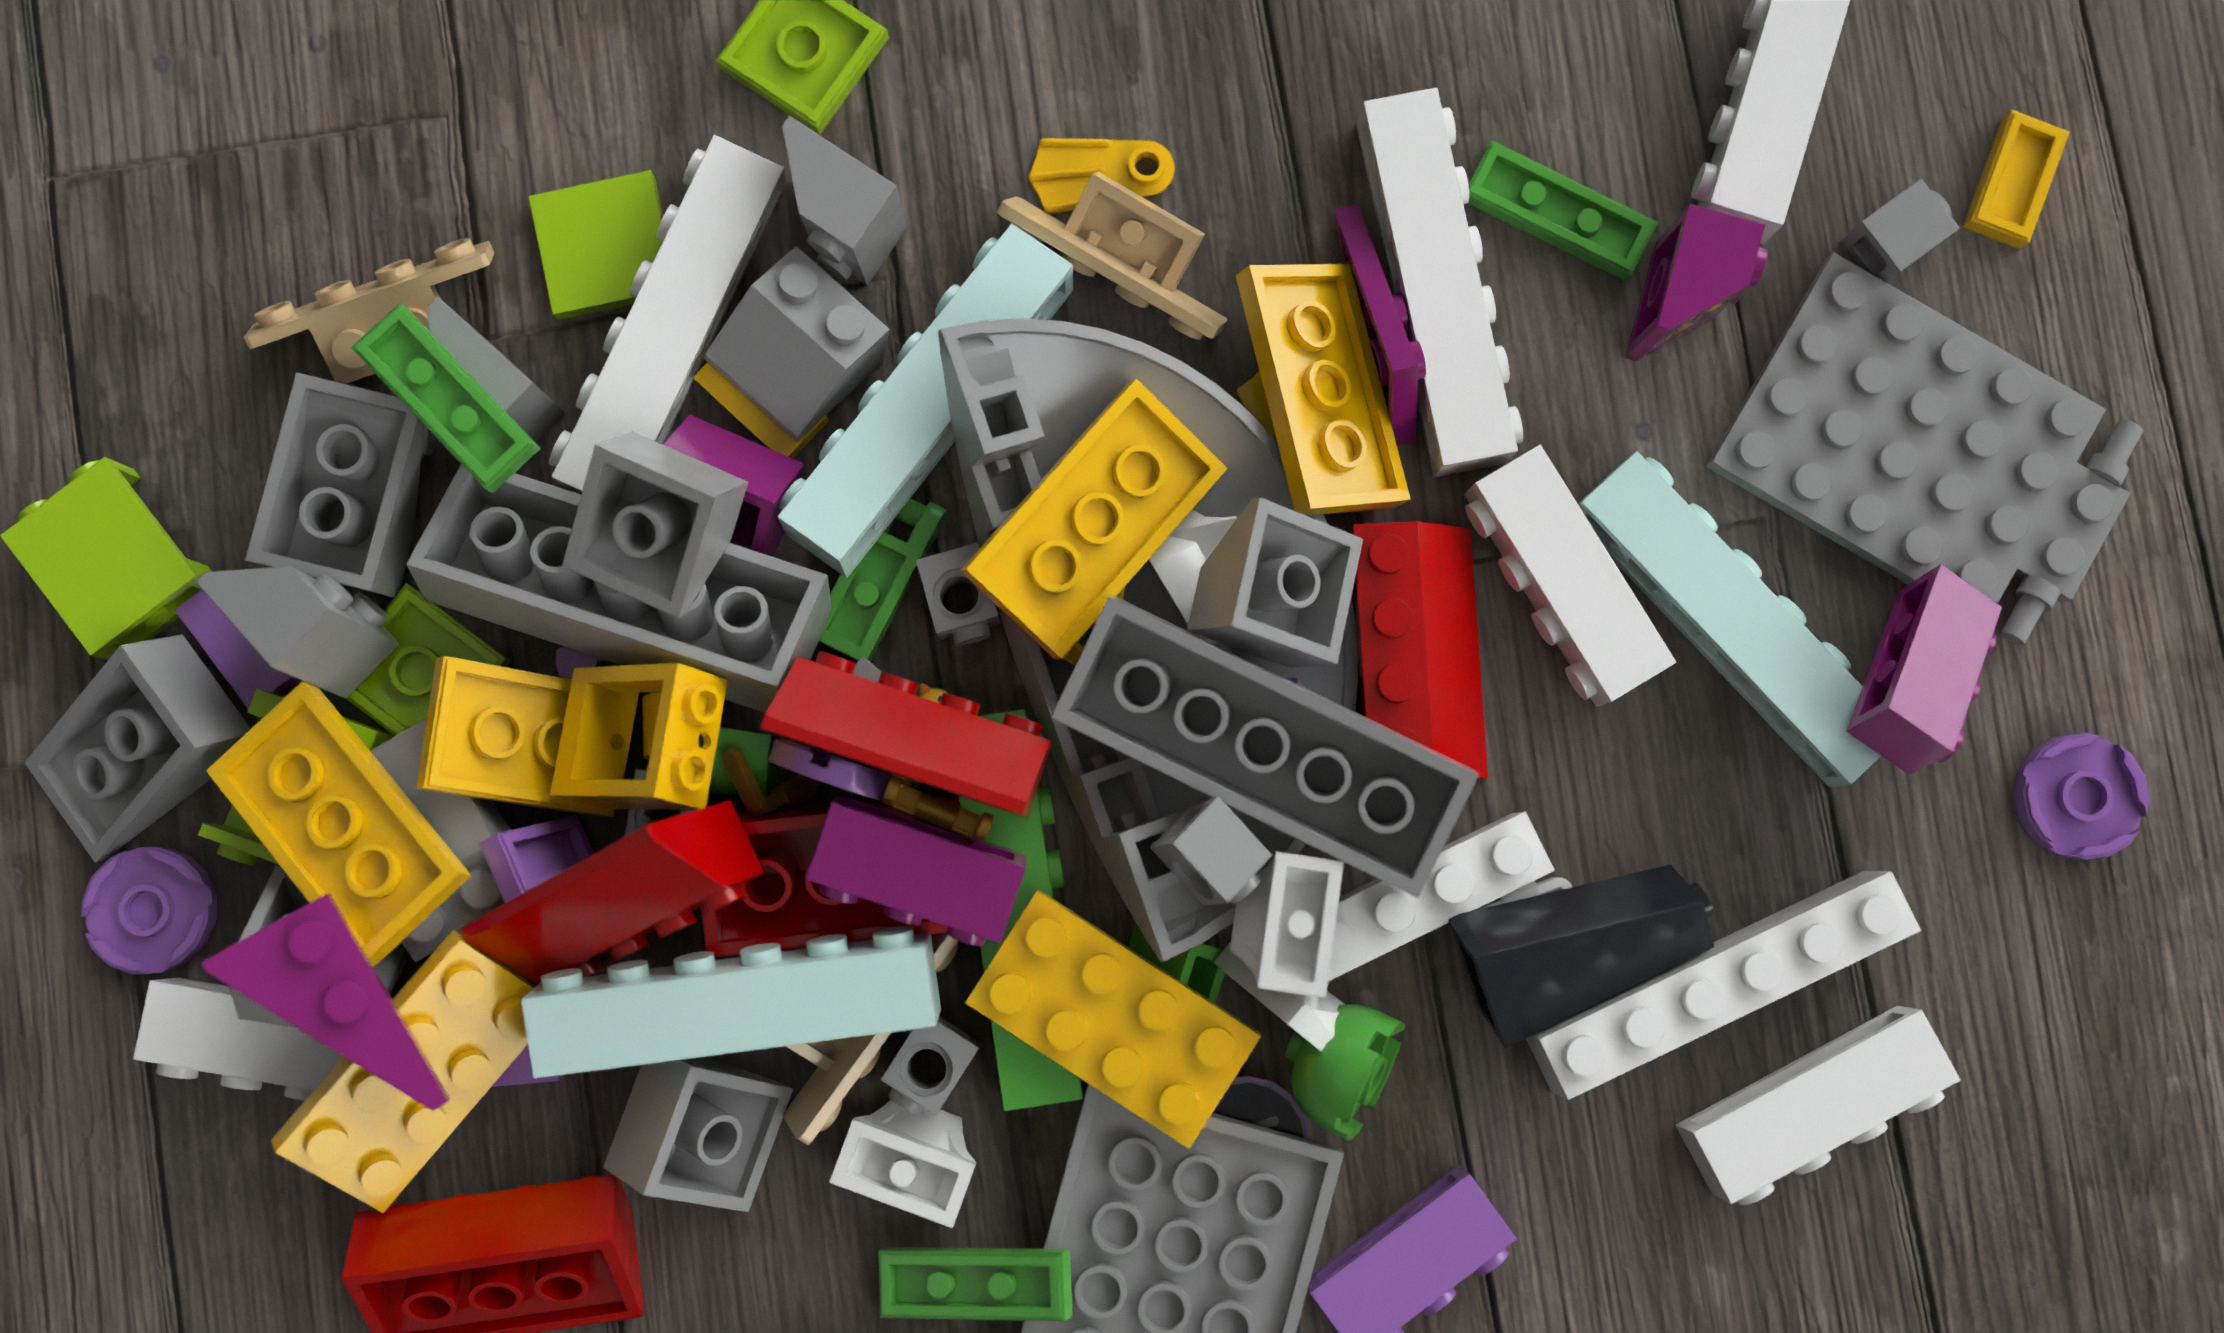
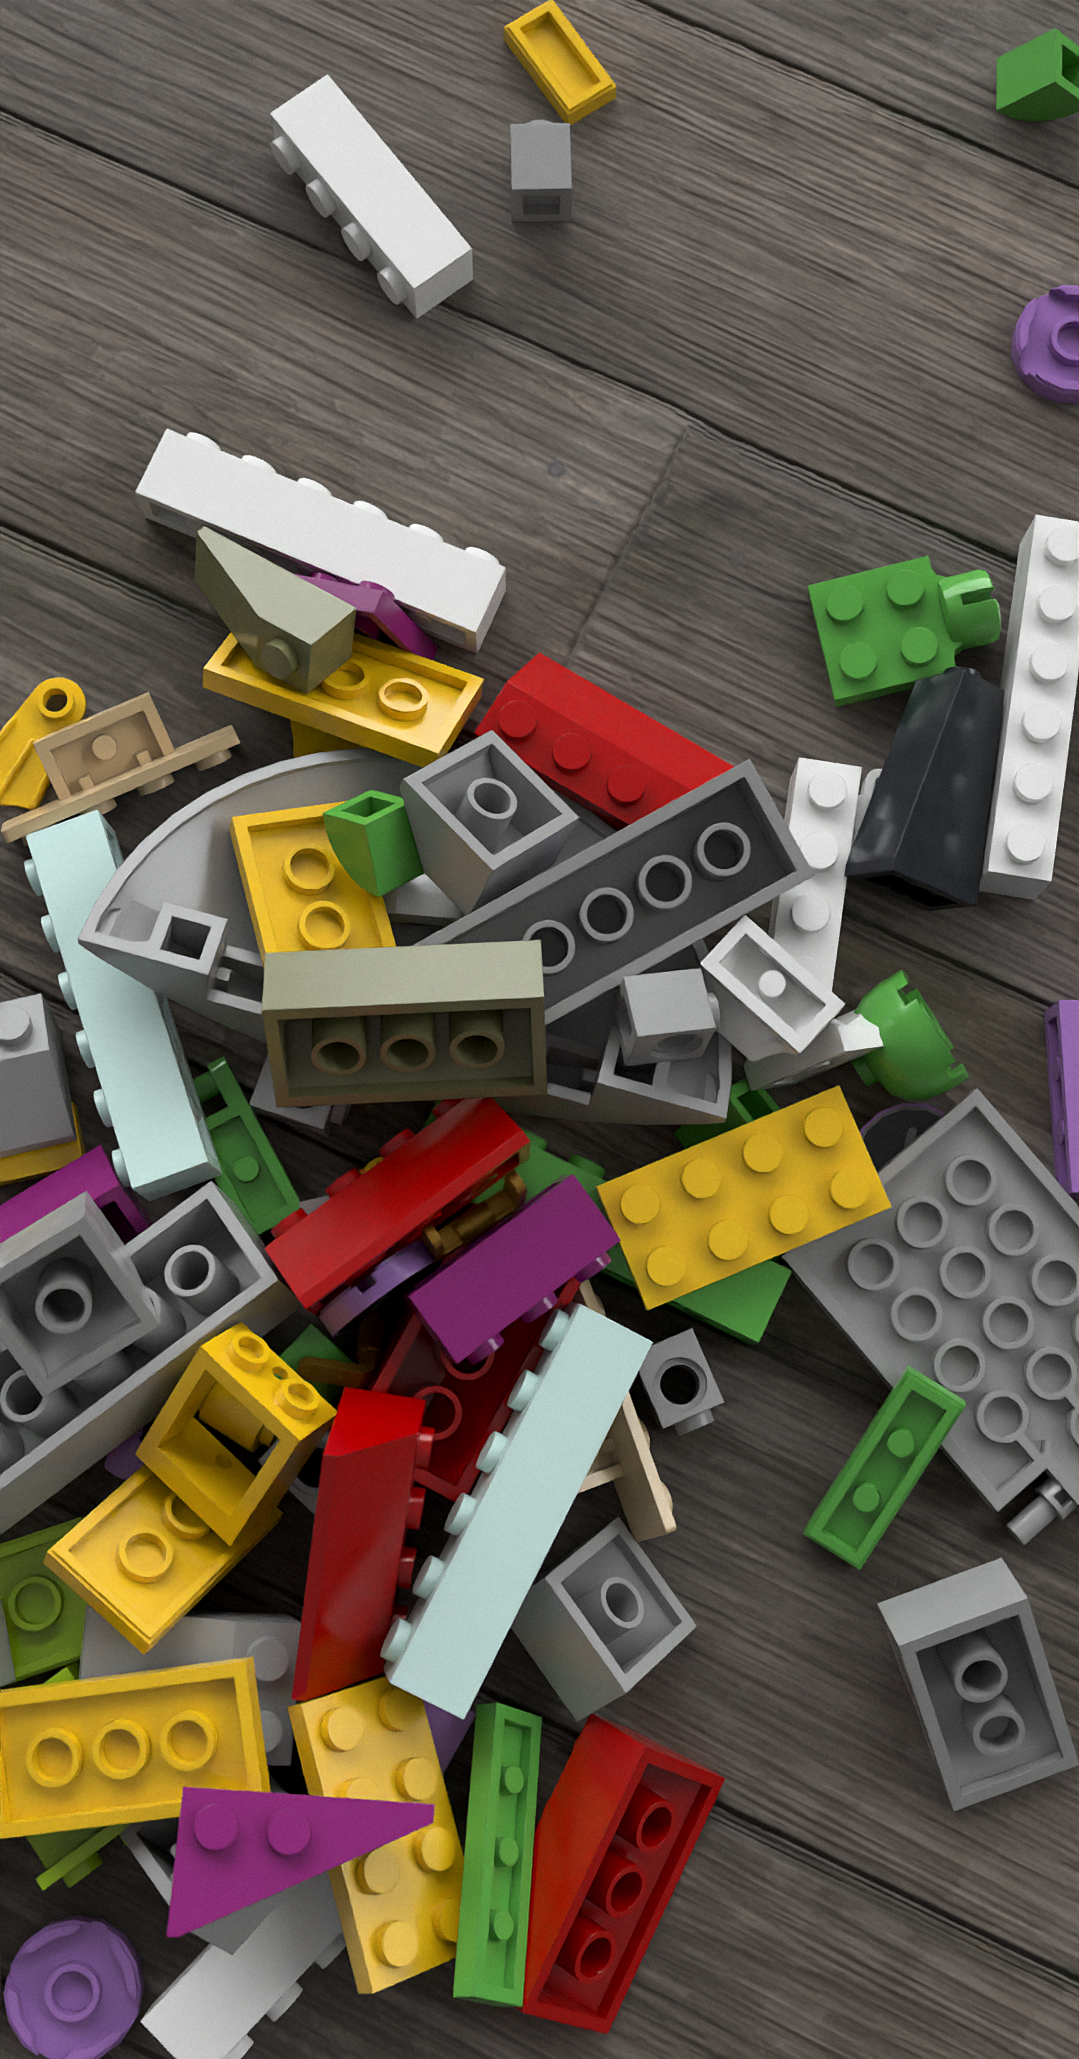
camera: 55 degrees left, 5 degrees down
(453, 1177) = (498, 1857): none -> bright green plate
(535, 854) = (272, 1596): medium lavender tile -> none
(907, 1161) = (745, 1456): white slope -> none
(1052, 643) = (405, 1023): none -> olive slope
(1197, 508) = (374, 841): none -> bright green brick
(1336, 300) = (273, 614): none -> olive slope
(1560, 211) = (334, 410): bright green tile -> none
(1567, 577) = (633, 603): white brick -> none
(1694, 275) = (461, 340): magenta slope -> none
(1710, 817) = (899, 626): none -> bright green plate
(1731, 615) = (757, 499): light aqua brick -> none
(1926, 447) = (722, 271): light grey plate -> none
(1926, 671) = (897, 383): brick -> none

